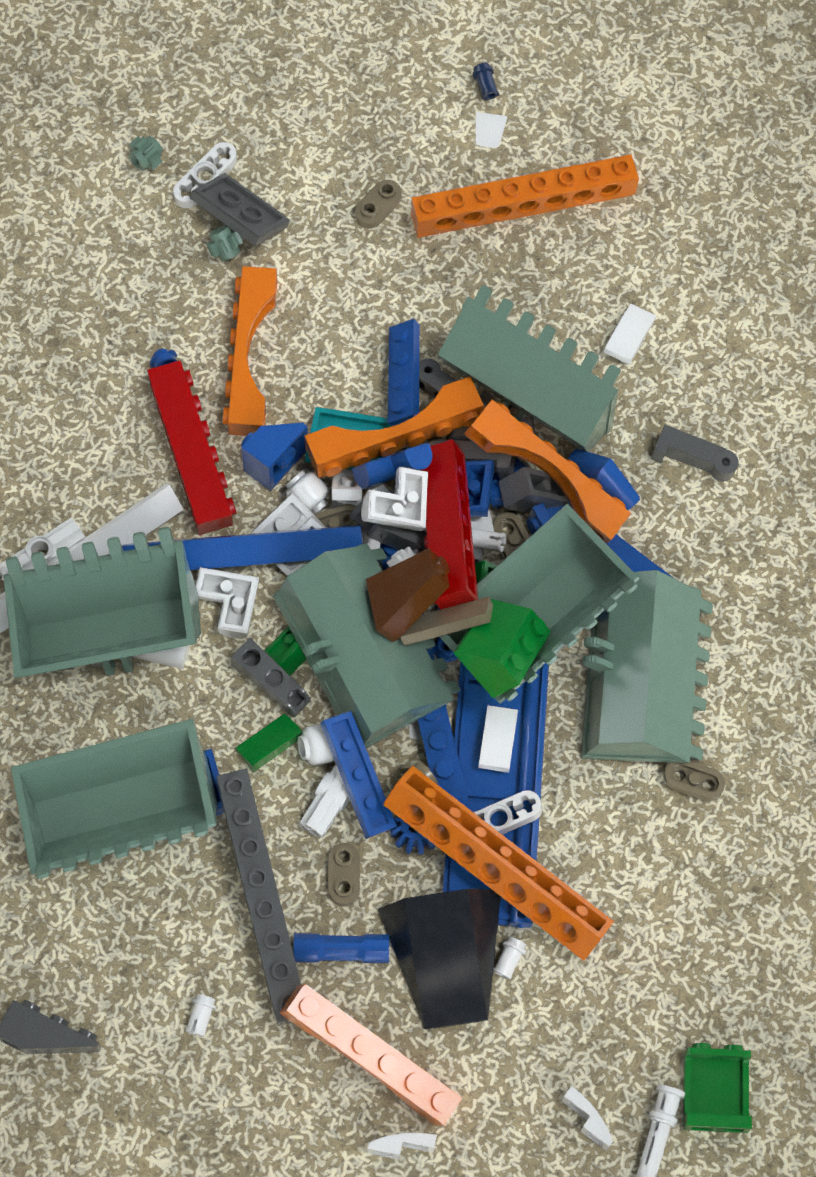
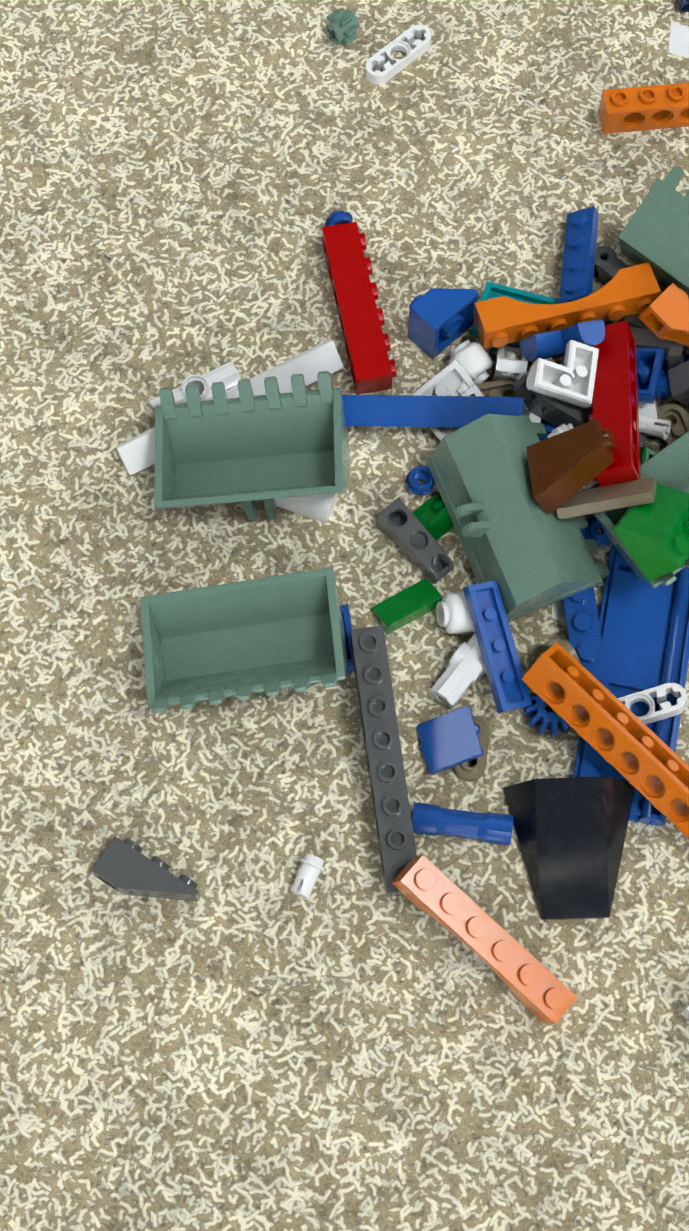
camera: 10 degrees right, 0 degrees up
(224, 243) = (411, 117): sand green gear -> none
(237, 595) = (388, 456): white brick -> none
(240, 209) = (430, 87): dark grey tile -> none
(257, 298) = (438, 174): orange arch -> none
(263, 613) = (420, 473): none -> blue plate
(322, 869) = (450, 740): none -> piece
(378, 201) = (569, 96): dark tan plate -> none
(391, 1145) = (496, 1038): white slope -> none
(498, 738) = (645, 627): white slope -> none
(509, 957) = (638, 854): white pin -> none

